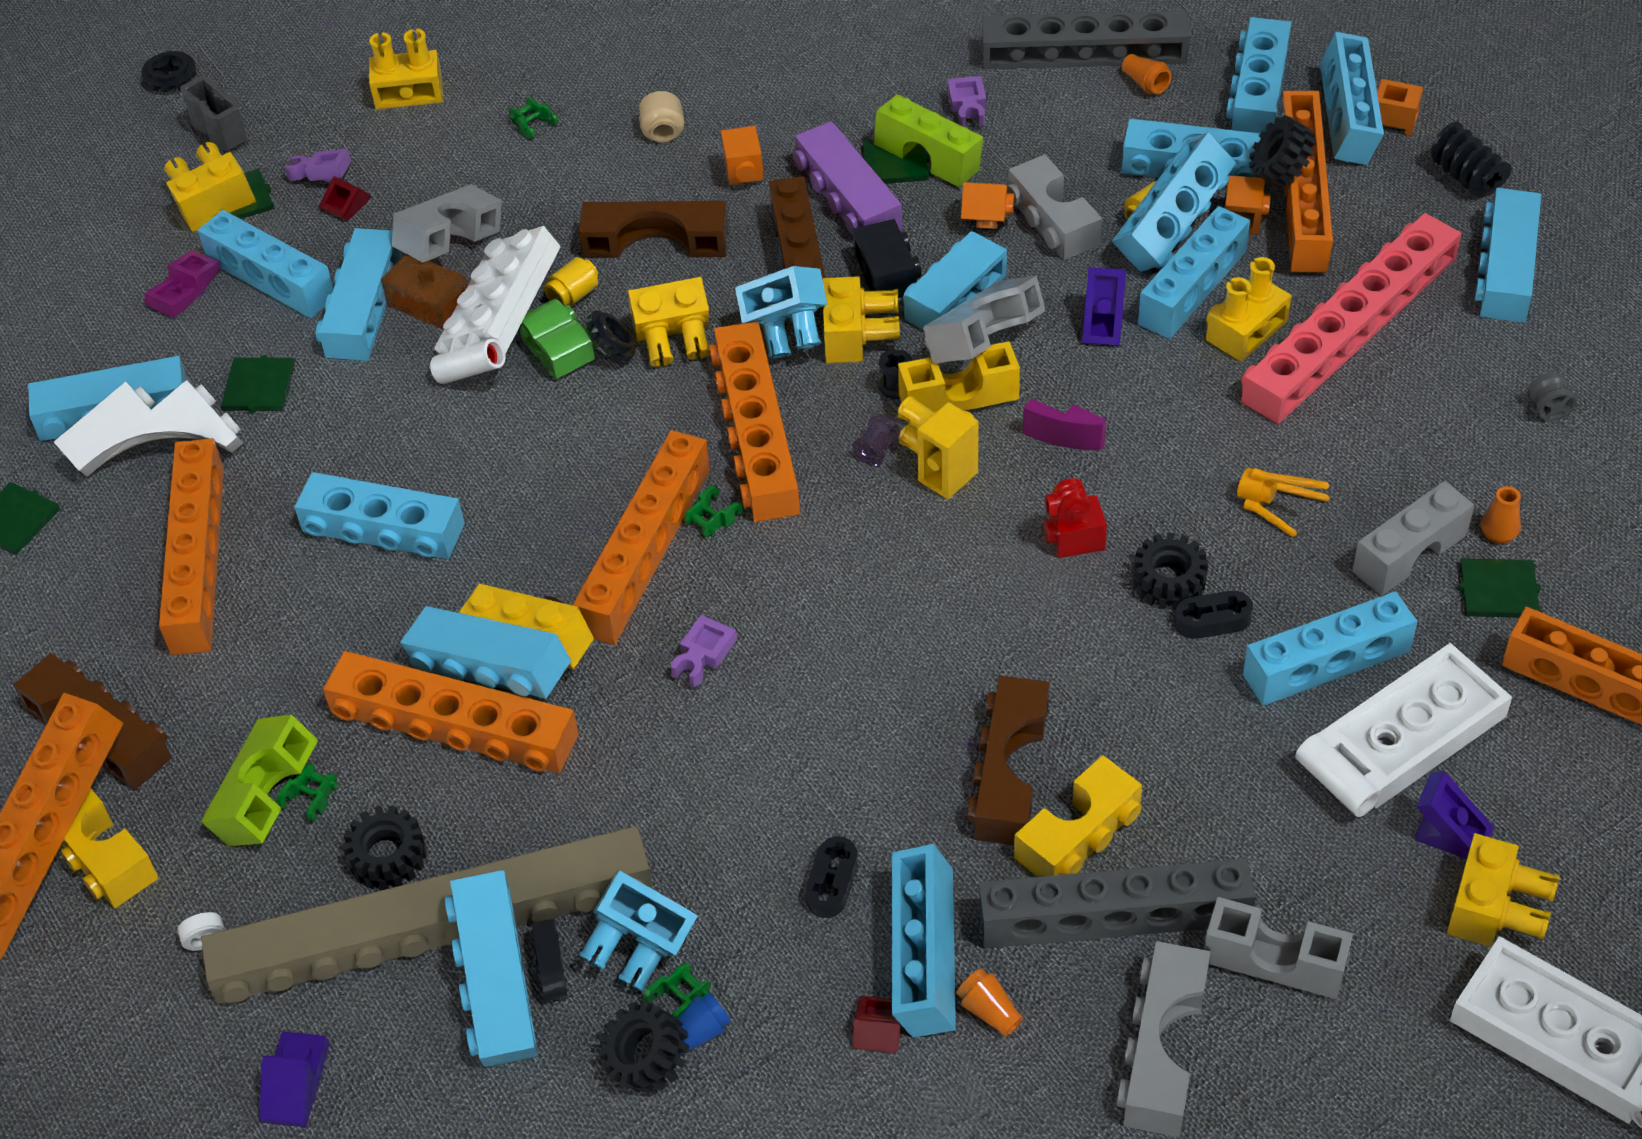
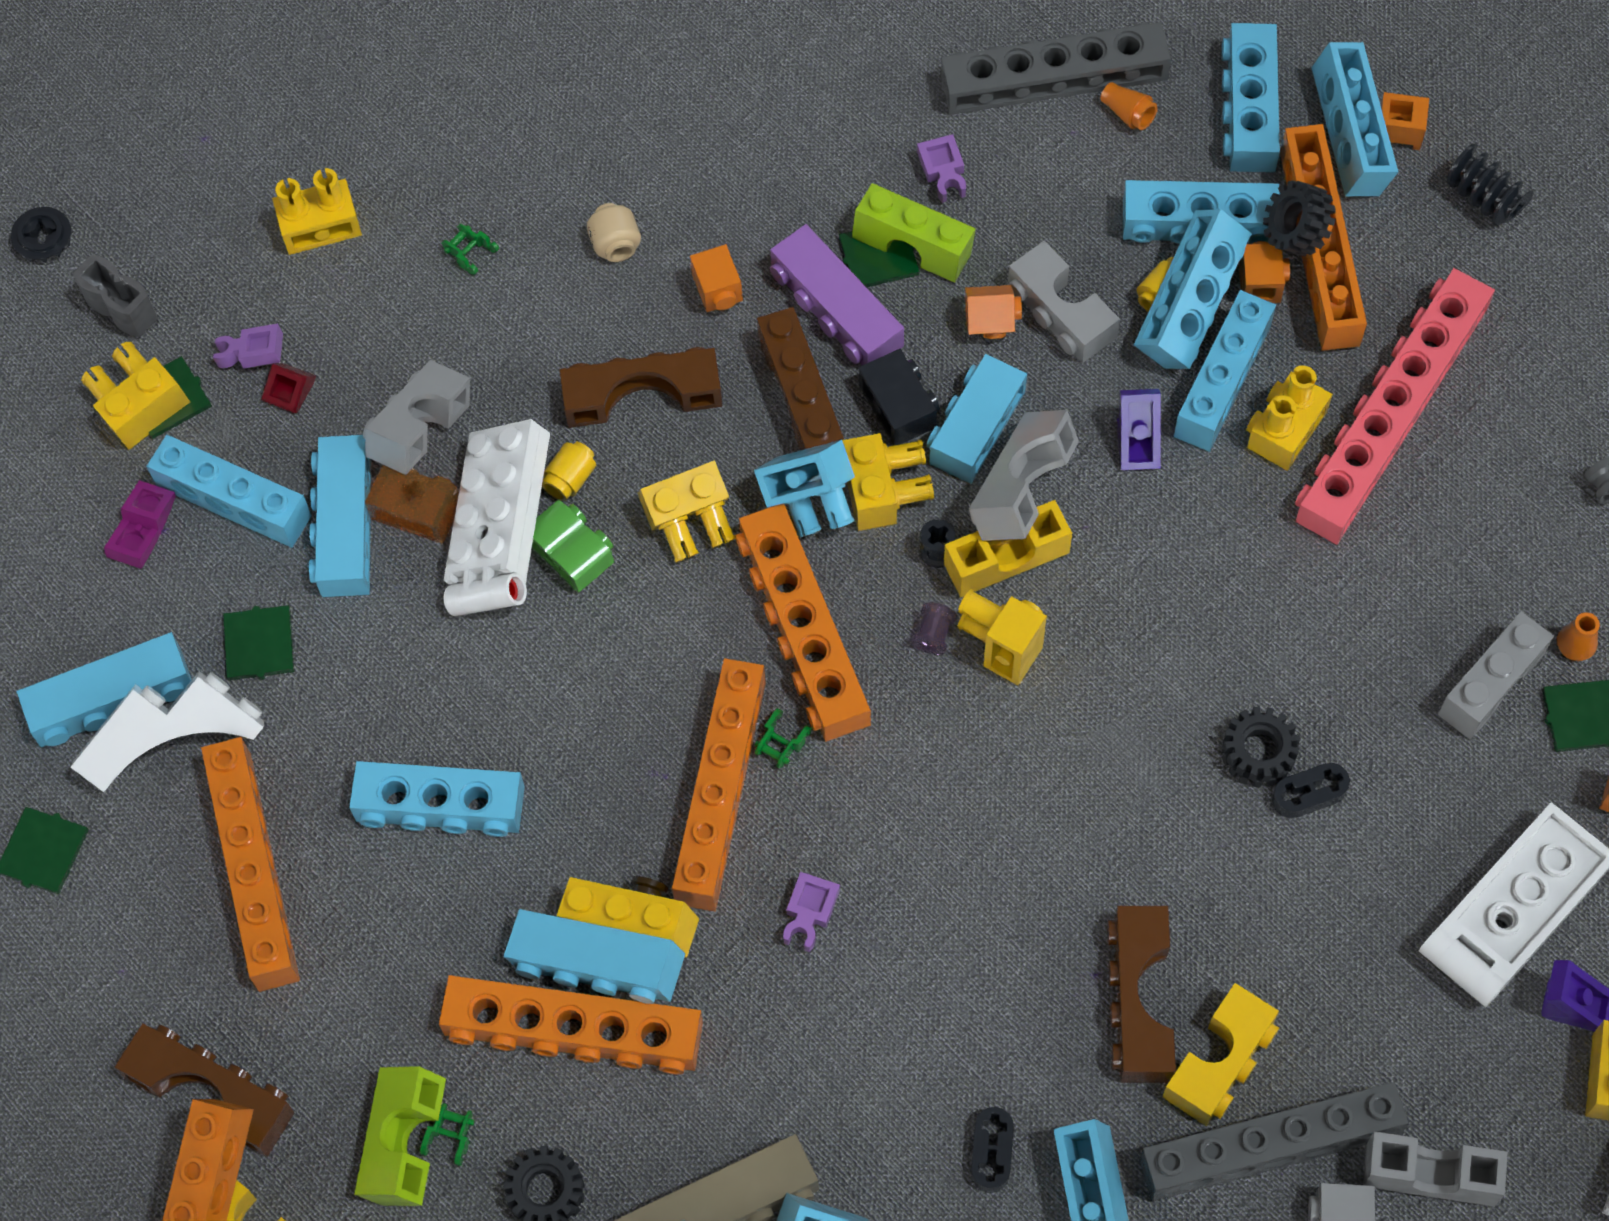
camera: 10 degrees left, 15 degrees up
(611, 335) = (628, 537): black gear -> none
(1071, 430) = (1137, 588): magenta slope -> none
(1075, 520) = (1157, 706): red brick -> none
(1261, 486) = (1335, 631): light orange plant -> none
(1329, 648) = (1432, 819): medium azure brick -> none
(1510, 255) = (1544, 303): medium azure brick -> none

